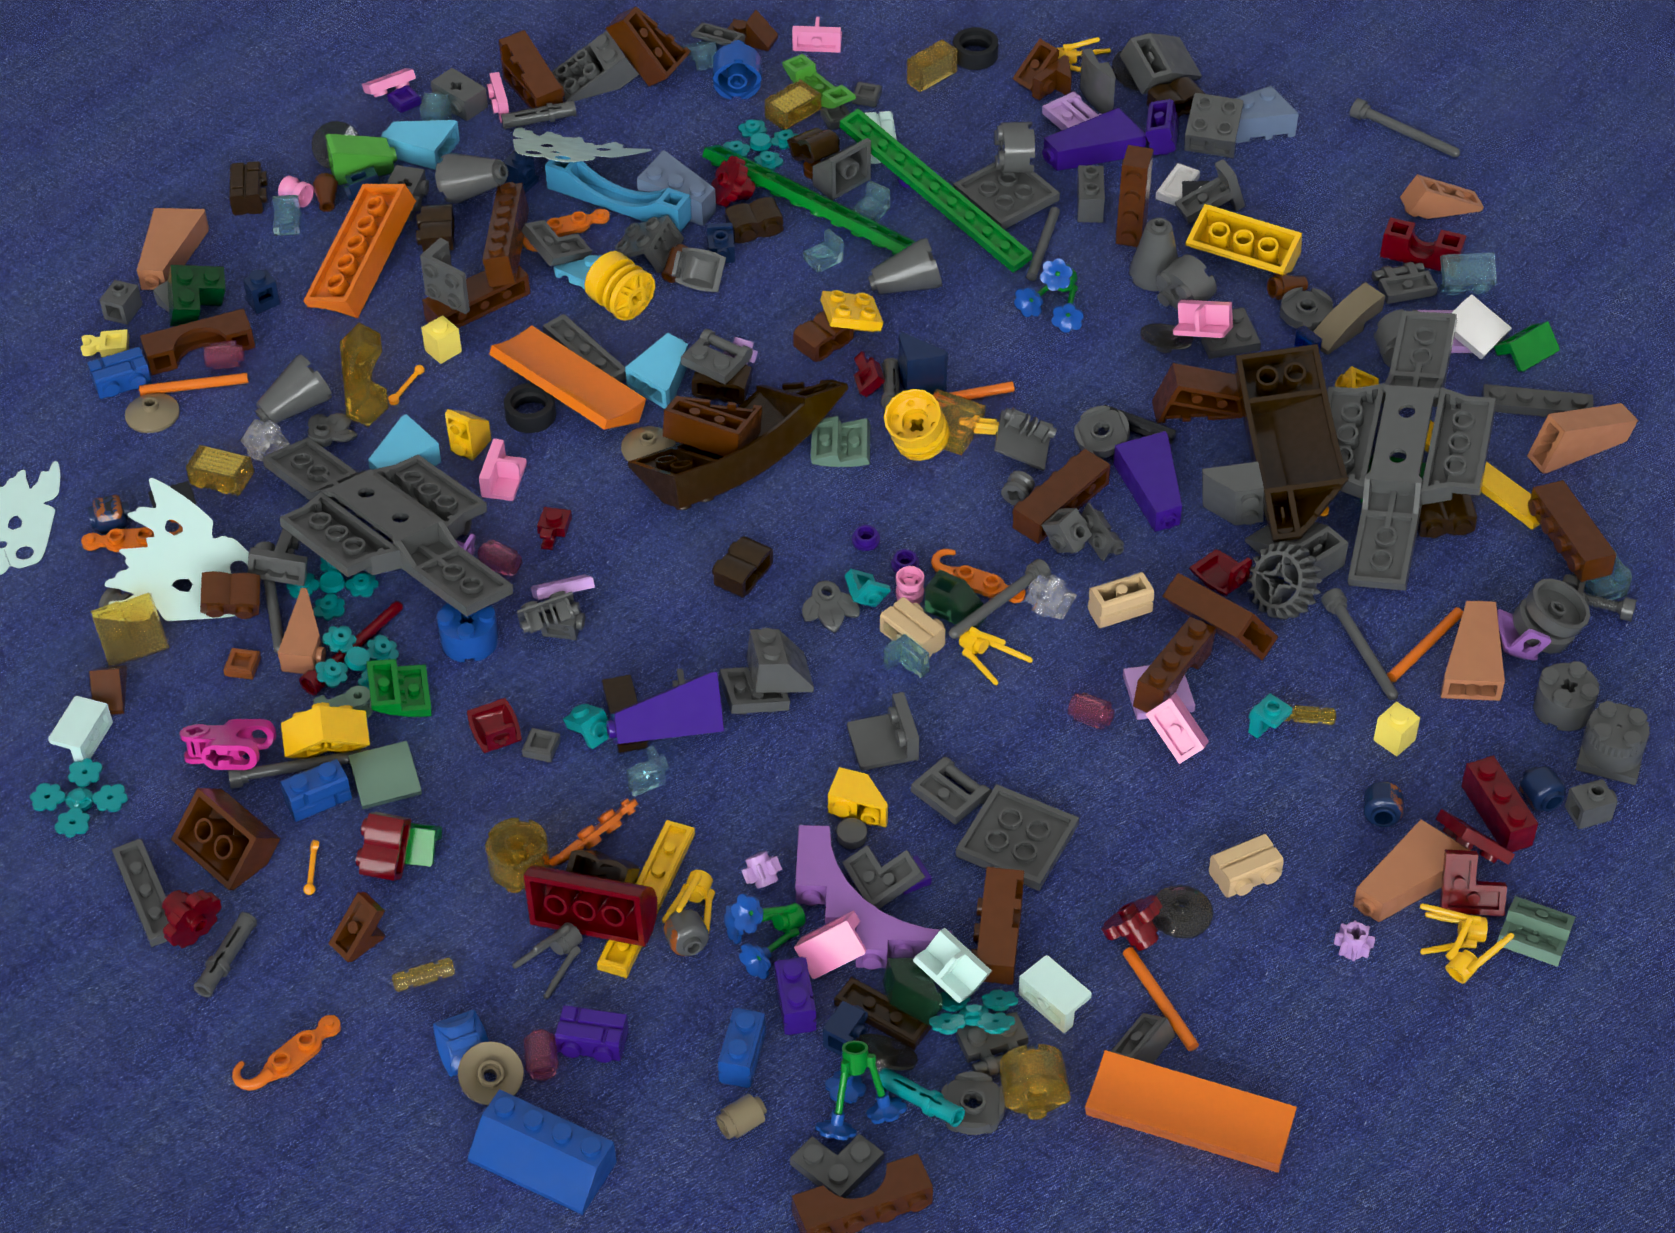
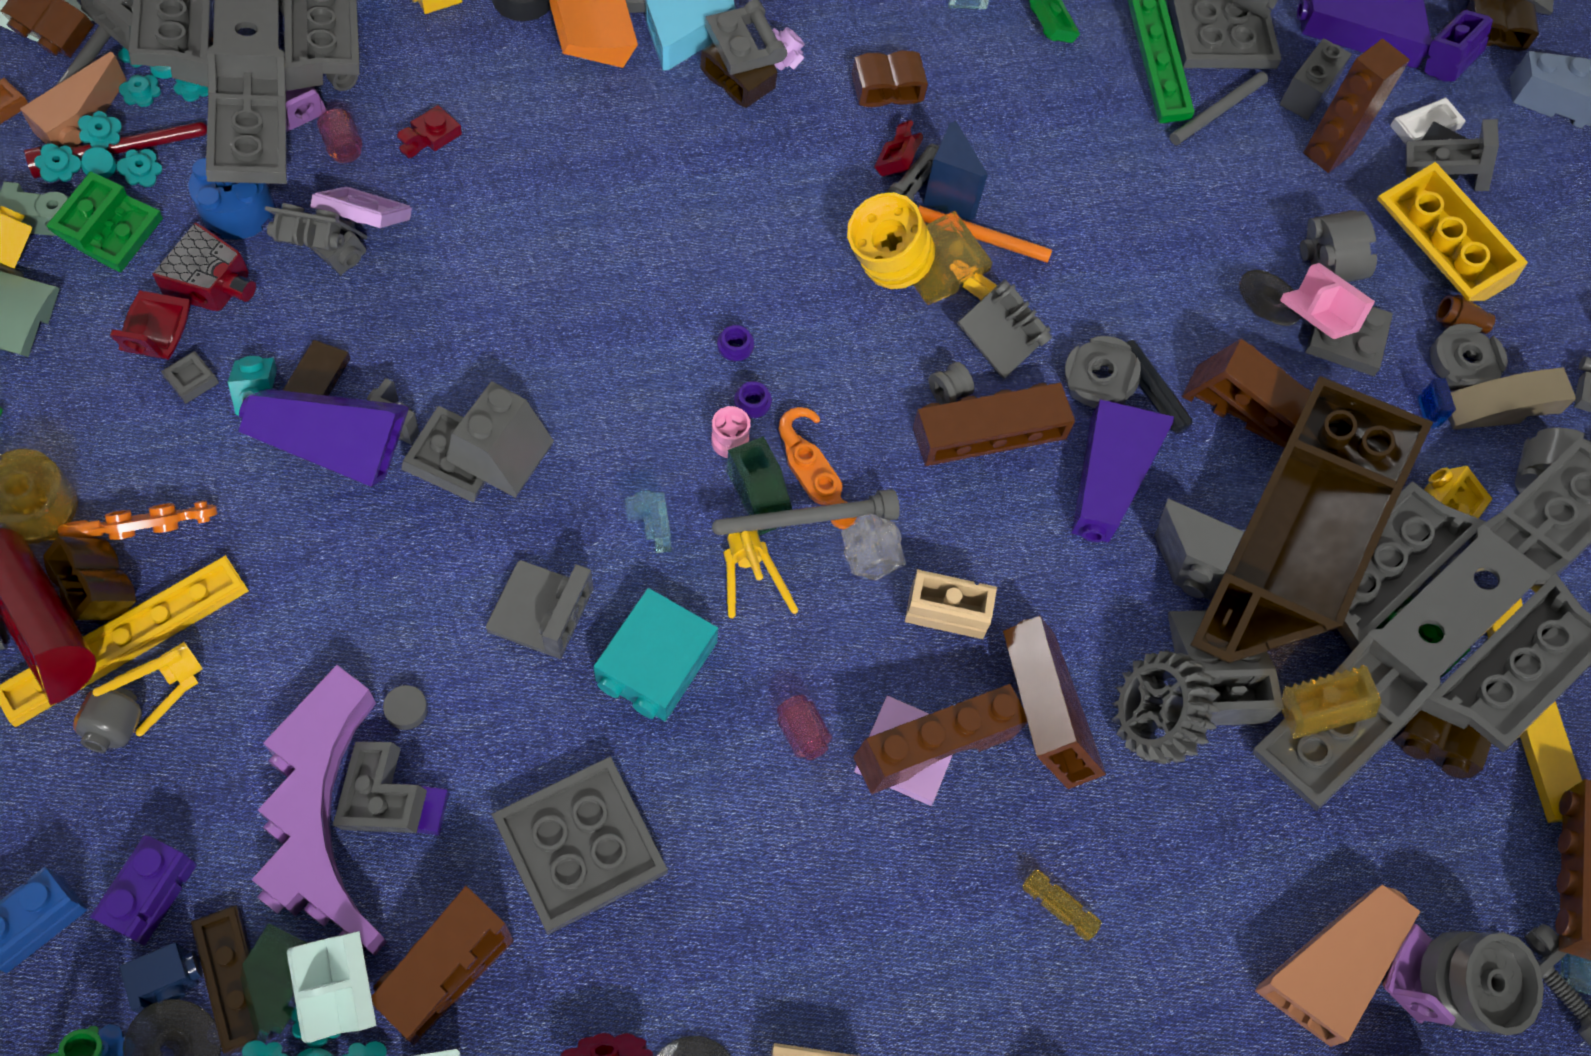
camera: 25 degrees right, 15 degrees up
(495, 677) = (204, 271): none -> torso
(501, 473) = (430, 41): bright pink panel -> none
(644, 442) = (607, 100): dark tan dish -> none
(648, 774) = (254, 487): clear light blue bracket -> none
(690, 475) = (689, 152): dark brown slope -> none
(711, 426) = (674, 116): reddish brown wedge -> none
(742, 566) = (573, 296): dark brown brick -> none
(747, 915) = (229, 772): blue plant -> none
(761, 869) = (258, 692): lavender gear -> none
(829, 608) = (625, 405): dark grey plate -> none
(831, 945) = (234, 848): bright pink panel -> none
(841, 443) = (806, 213): sand green slope -> none
(851, 311) = (935, 67): yellow plate -> none
(857, 797) = (445, 666): yellow slope -> none
(865, 589) = (678, 404): teal bracket -> none
(907, 270) = (1038, 55): dark grey cone -> none
(915, 623) = (688, 488): tan brick -> none
(945, 795) = (545, 731): dark grey plate -> none
(974, 722) = (655, 655): none -> teal brick
(1057, 277) = (1189, 154): blue plant -> none
(1067, 530) = (960, 474): dark grey brick -> none
(1102, 540) = (1003, 482): dark grey hinge -> none
(1153, 253) = (1331, 188): dark grey cone -> none
(1177, 728) = (882, 826): bright pink panel -> none
(1213, 125) = (1520, 74): dark grey bracket -> none
(1222, 572) = (1102, 640): dark red piece -> none
(1268, 714) = (1007, 882): teal bracket -> none
(1335, 602) = (1215, 771): dark grey piece -> none
(1371, 522) = (1330, 702): none -> clear yellow brick
(1396, 728) = (1158, 1008): light yellow brick -> none
(1425, 644) = (1288, 902): orange bar -> none

